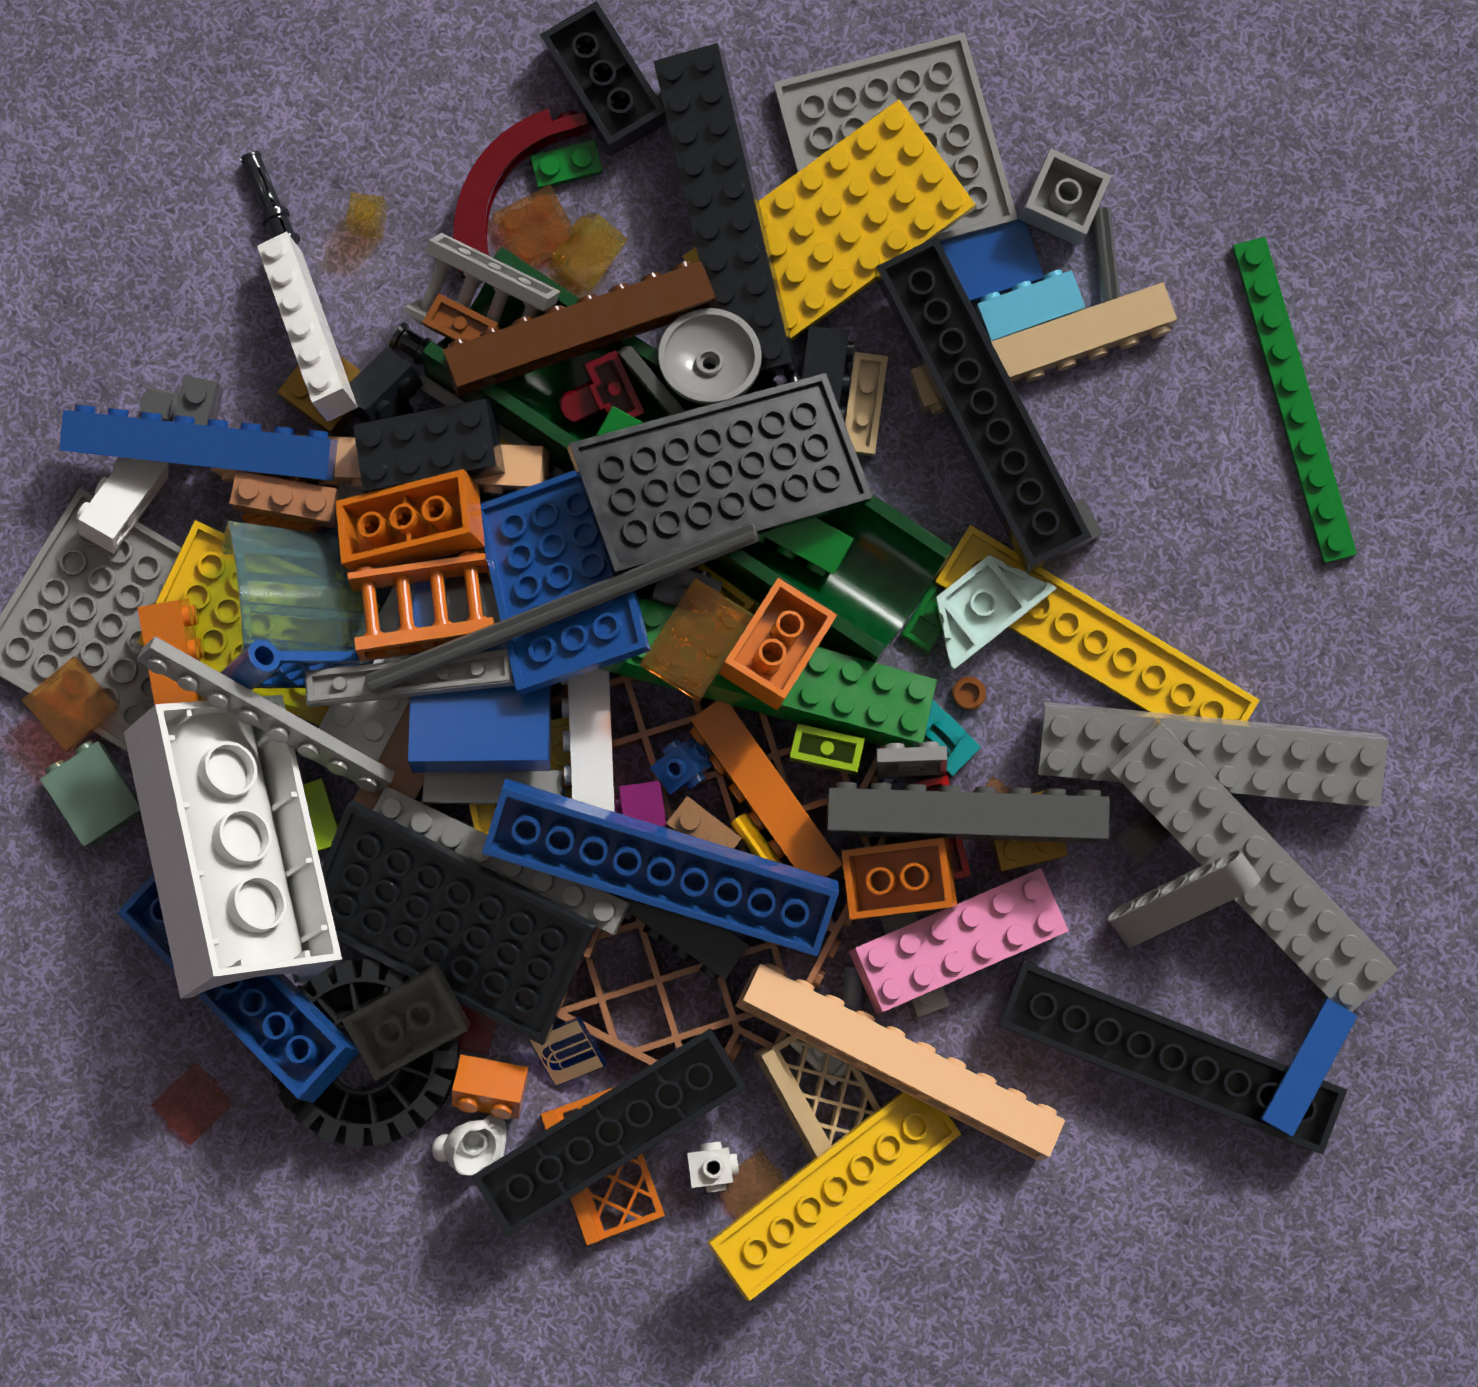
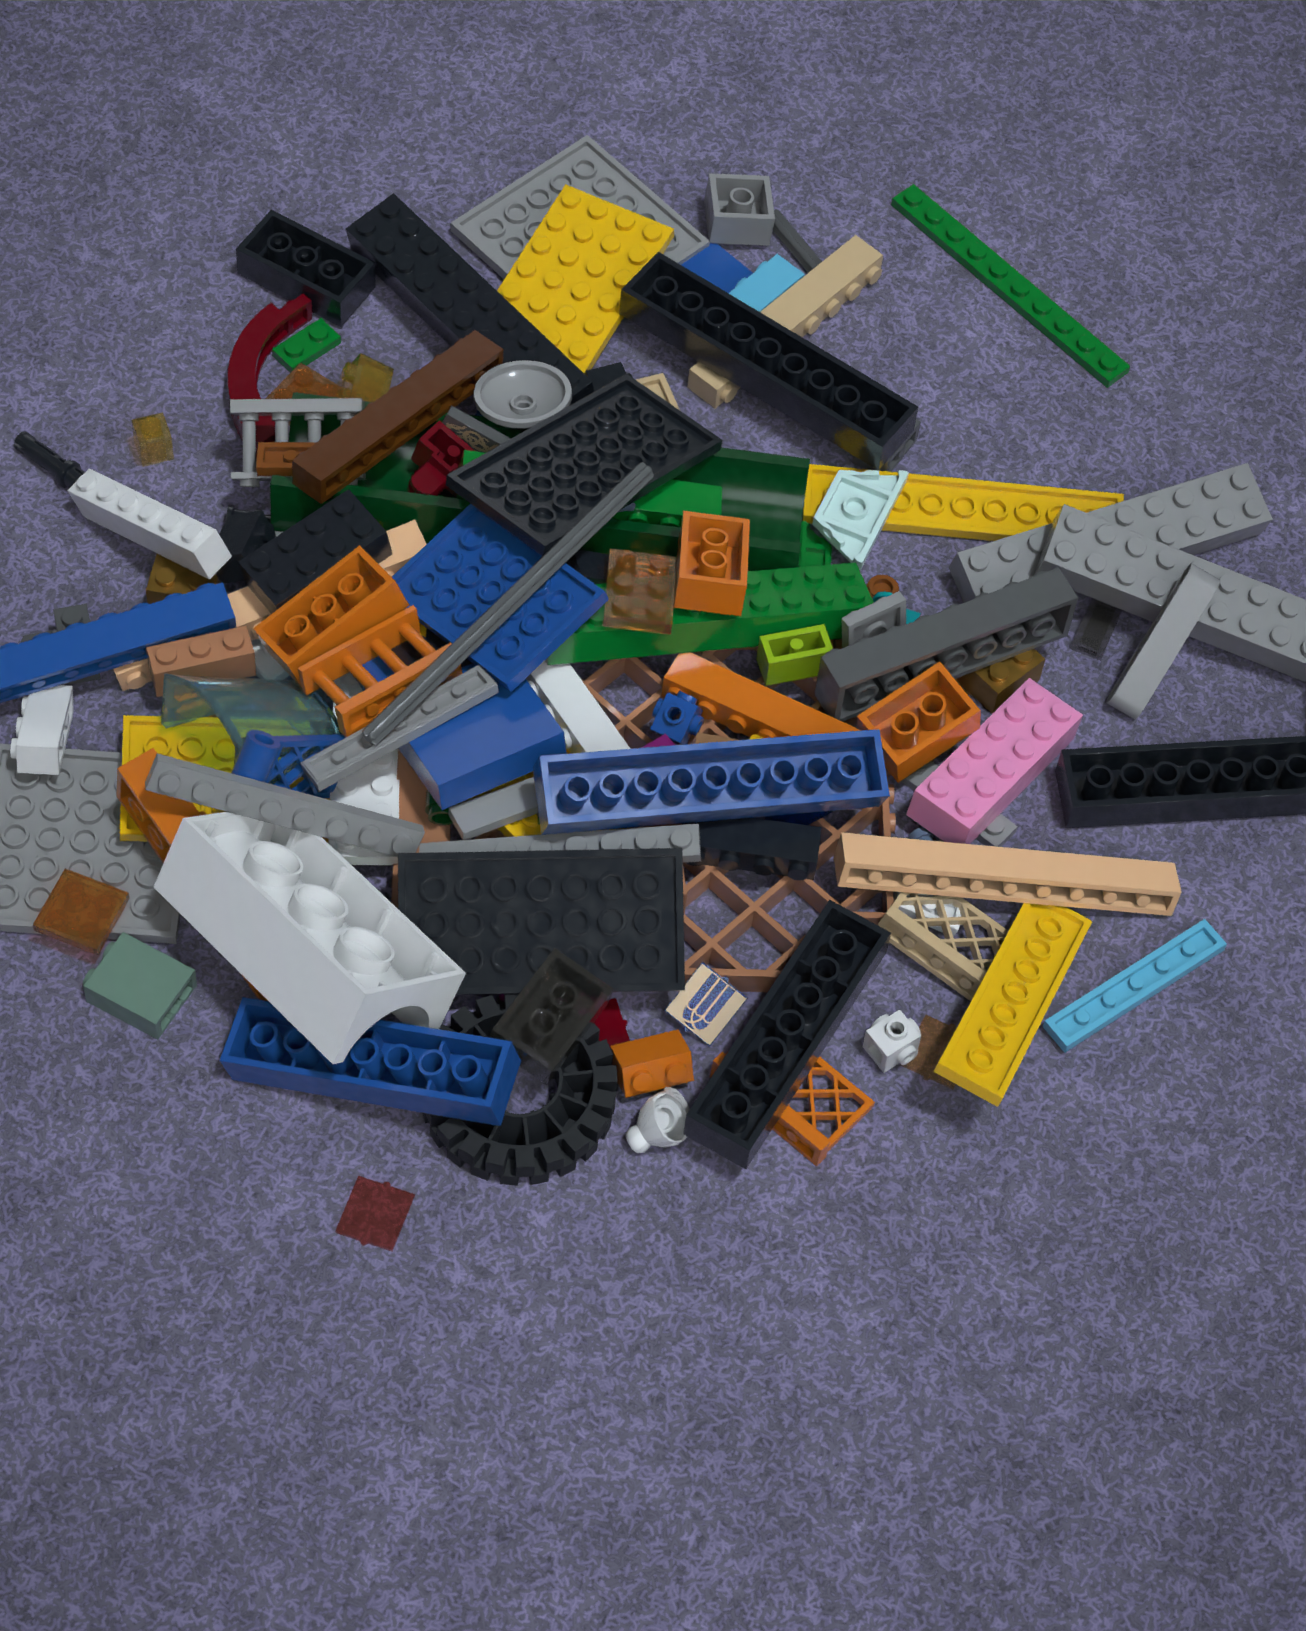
camera: 35 degrees left, 25 degrees down
(963, 1214) = (1134, 985): none -> medium azure plate

